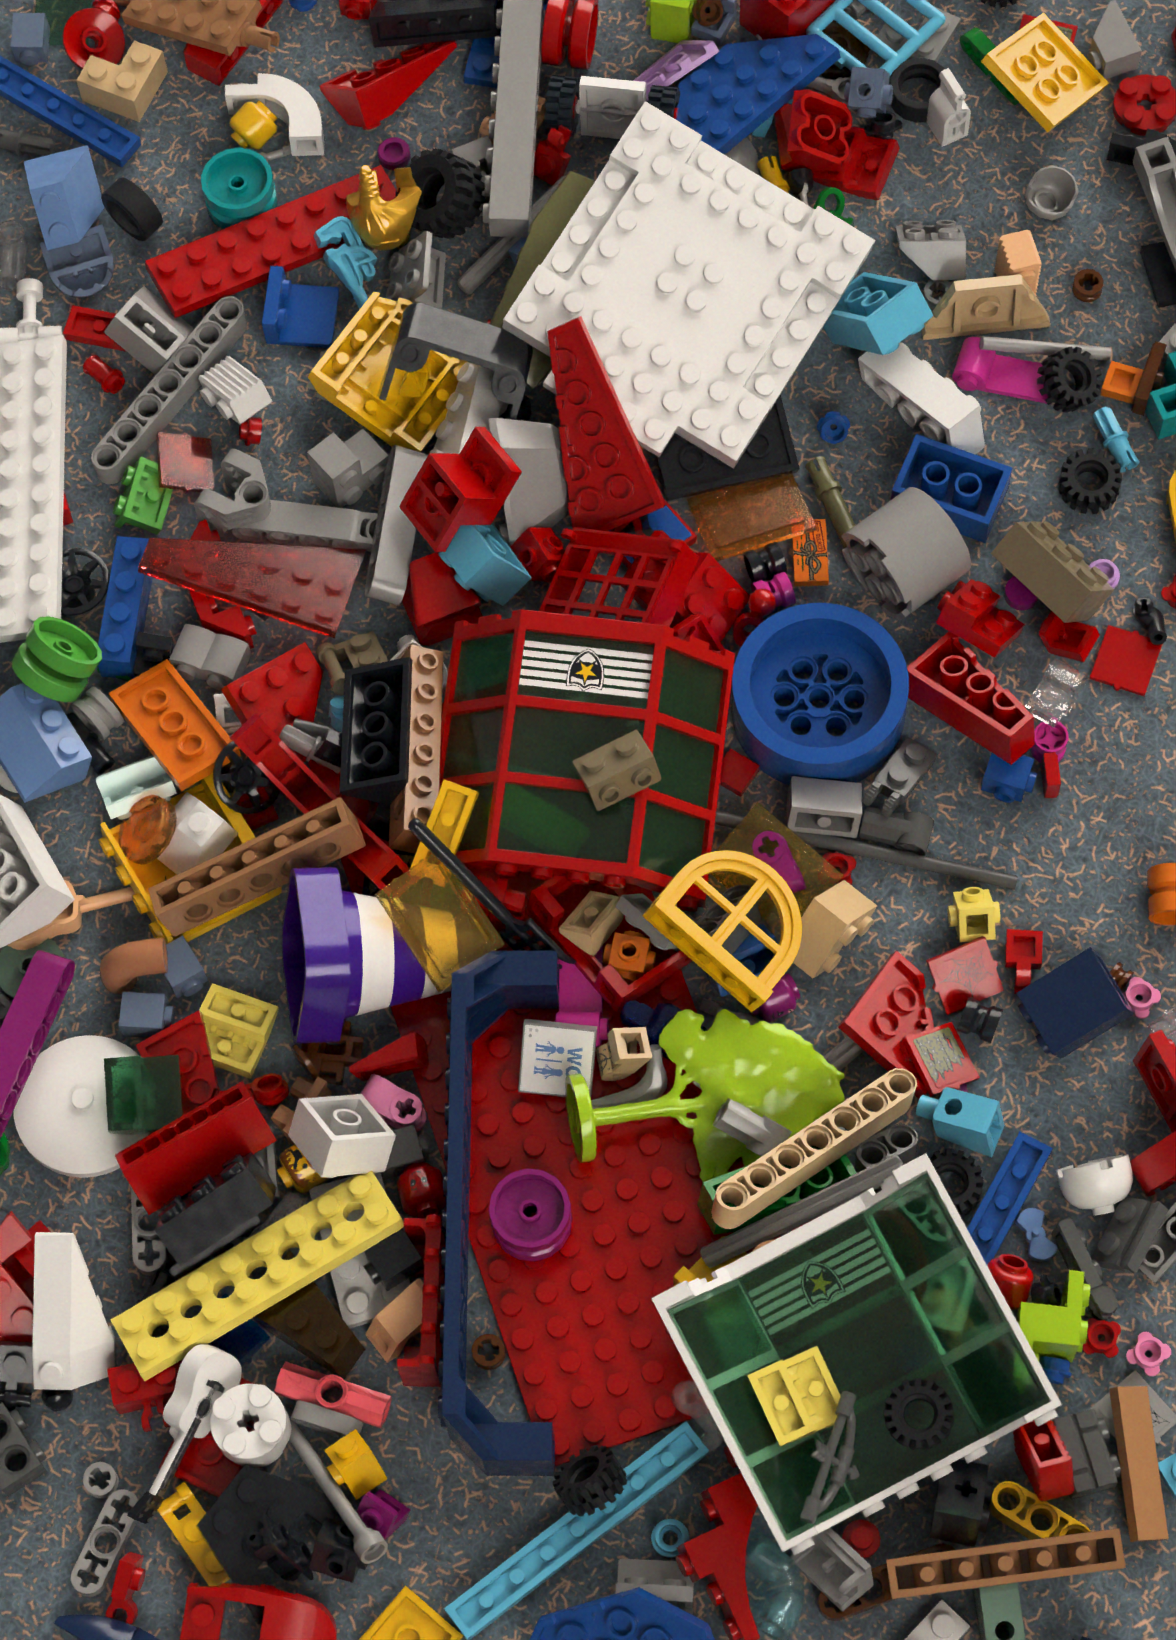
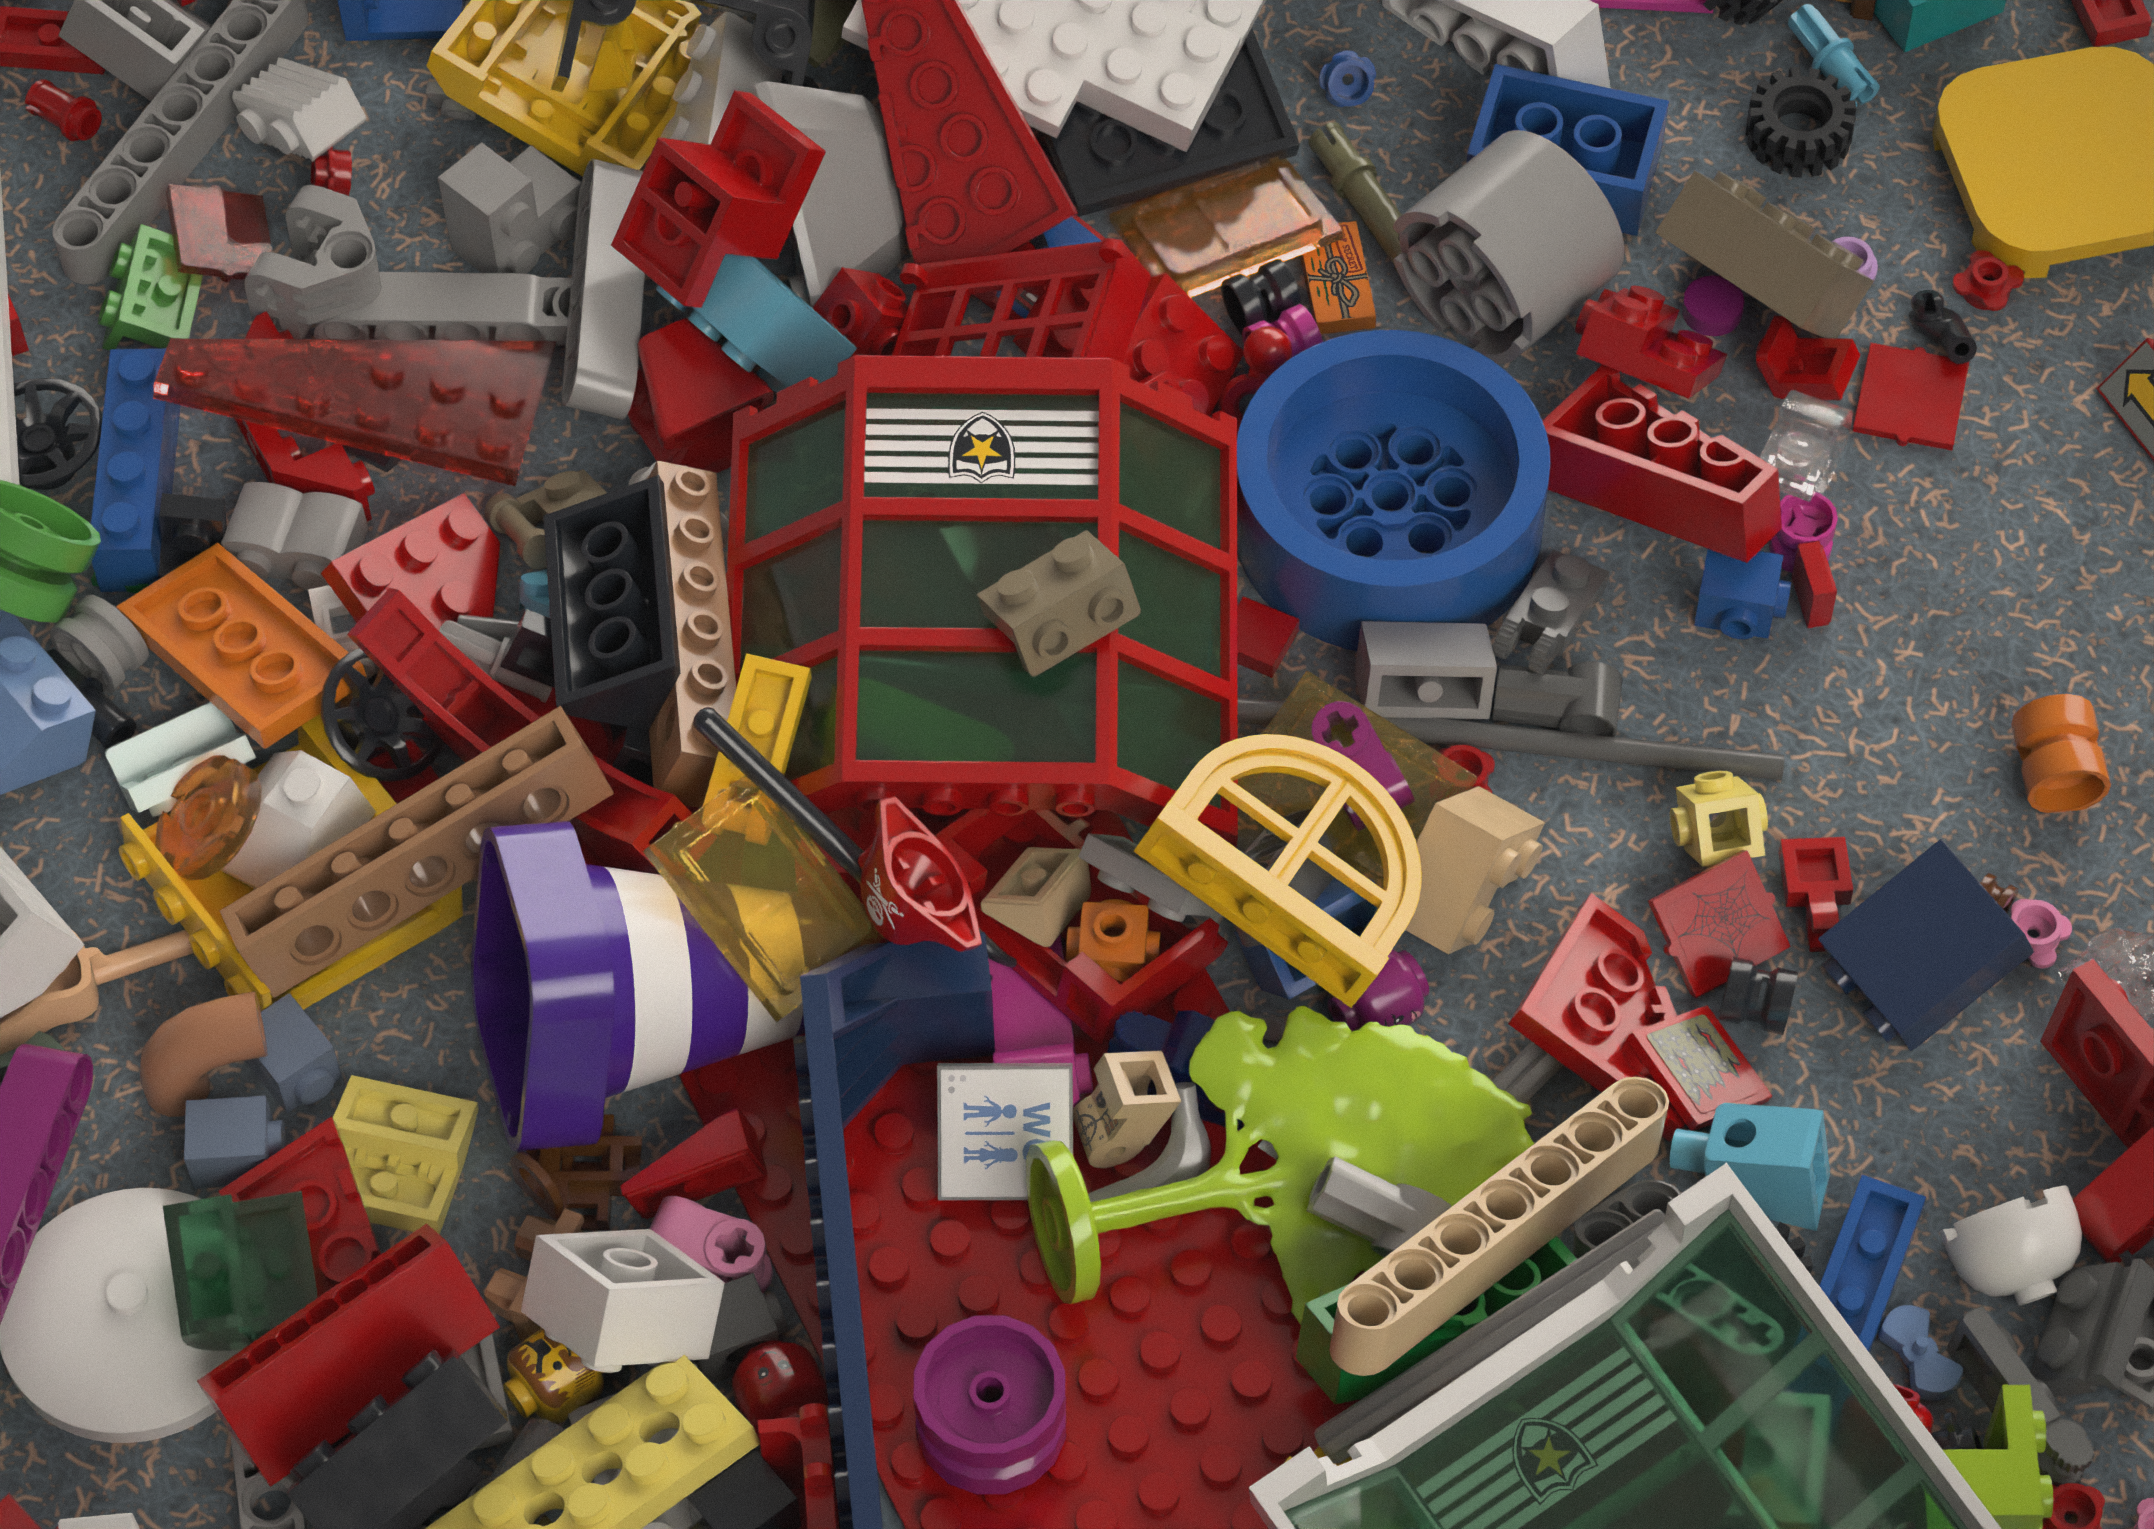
camera: 10 degrees left, 10 degrees down
(268, 1089) = (479, 1246): red plate -> none
(522, 923) = (915, 884): none -> red hat

